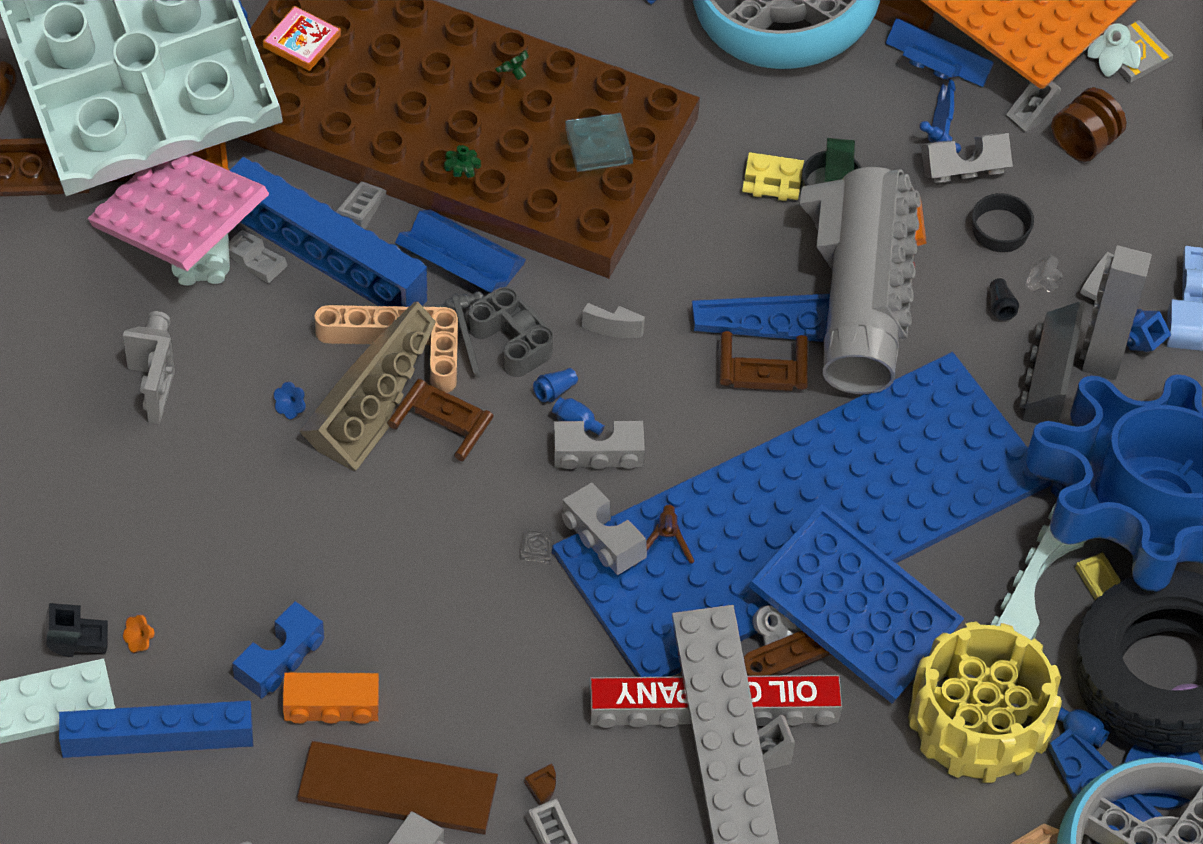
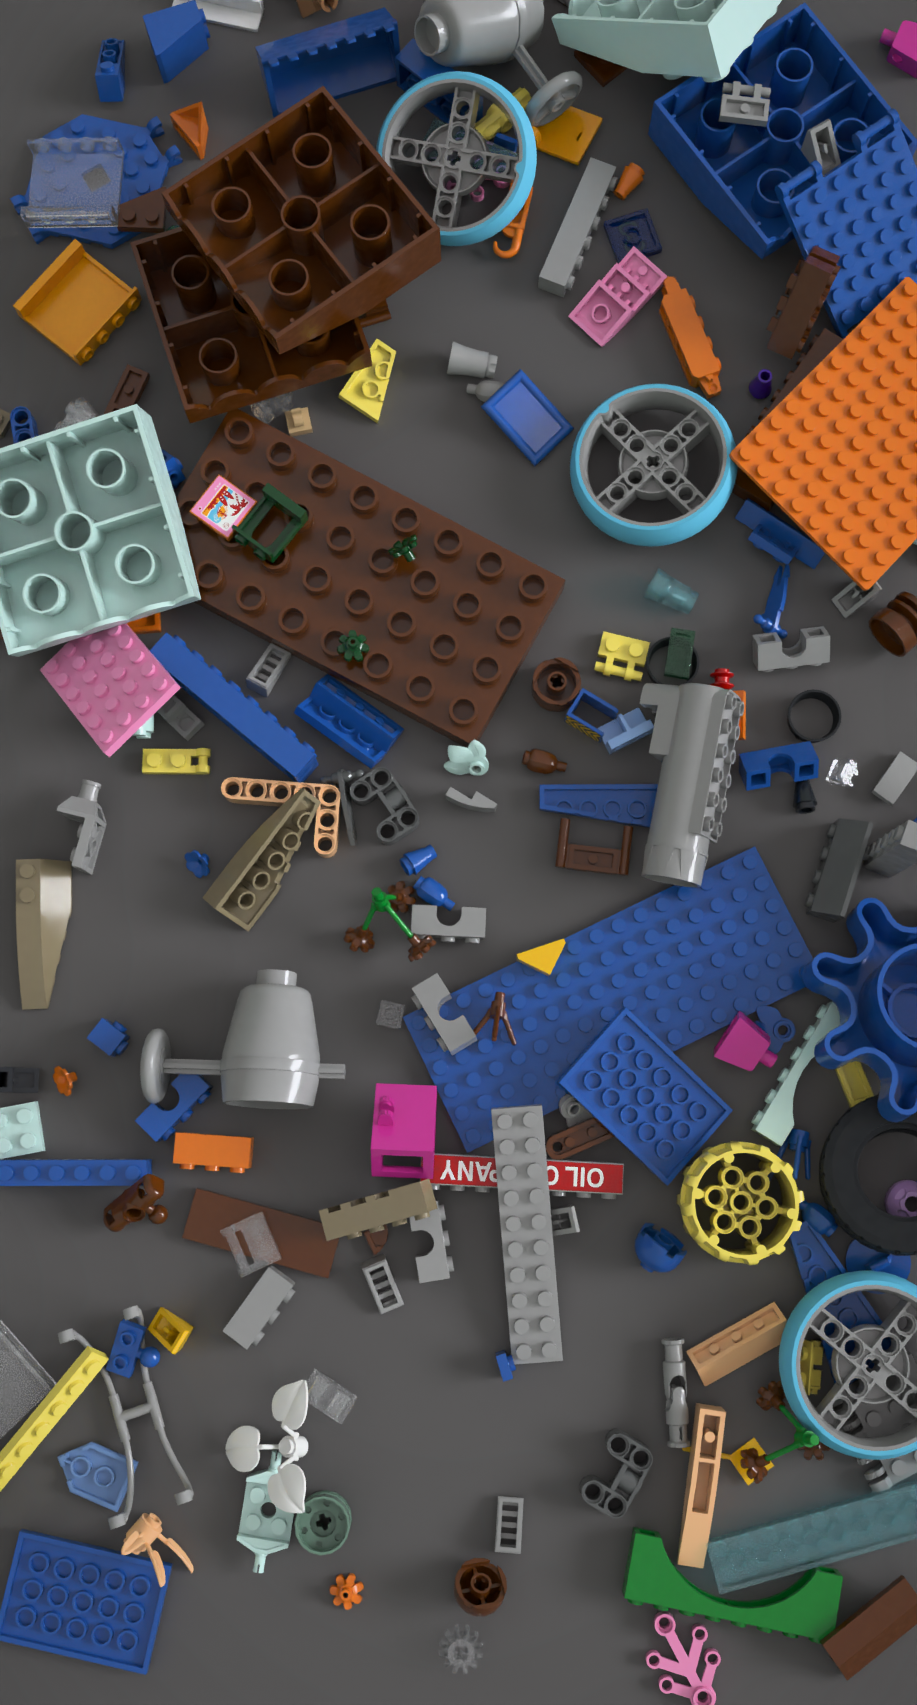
camera: 10 degrees right, 25 degrees up
(104, 472) = (41, 925): none -> dark tan wedge
(193, 584) = (109, 1037): none -> blue brick
(229, 765) = (134, 1204): none -> reddish brown piece
(256, 302) = (175, 761): none -> light yellow plate
(369, 28) = (271, 498): none -> dark green panel
(392, 548) = (267, 1055): none -> light grey piece
(396, 786) = (259, 1241): none -> clear plate
(446, 411) = (326, 881): reddish brown plate -> none
(535, 424) = (399, 899): none -> reddish brown plant
(544, 734) = (378, 1209): none -> dark tan wedge
(568, 629) = (404, 1127): none -> dark pink piece
(599, 142) = (471, 631): clear light blue plate -> none
(600, 277) = (467, 760): none -> light aqua plate
(604, 755) = (434, 1264): none -> light grey arch
(693, 281) = (542, 761): none -> reddish brown plant
(700, 201) = (549, 673): none -> reddish brown brick
(714, 465) = (542, 957): none -> yellow slope
(747, 218) = (596, 703): none -> blue piece
(786, 247) = (625, 730): none -> light blue panel
(821, 110) = (671, 592): none -> clear light blue plant
(892, 768) = (658, 1249): none -> blue cylinder
(969, 546) = (745, 1044): none -> dark pink torso
(985, 262) = (795, 759): none -> blue arch
(994, 539) = (770, 1021): none -> blue plate
(1053, 652) = (800, 1143): none -> blue plant

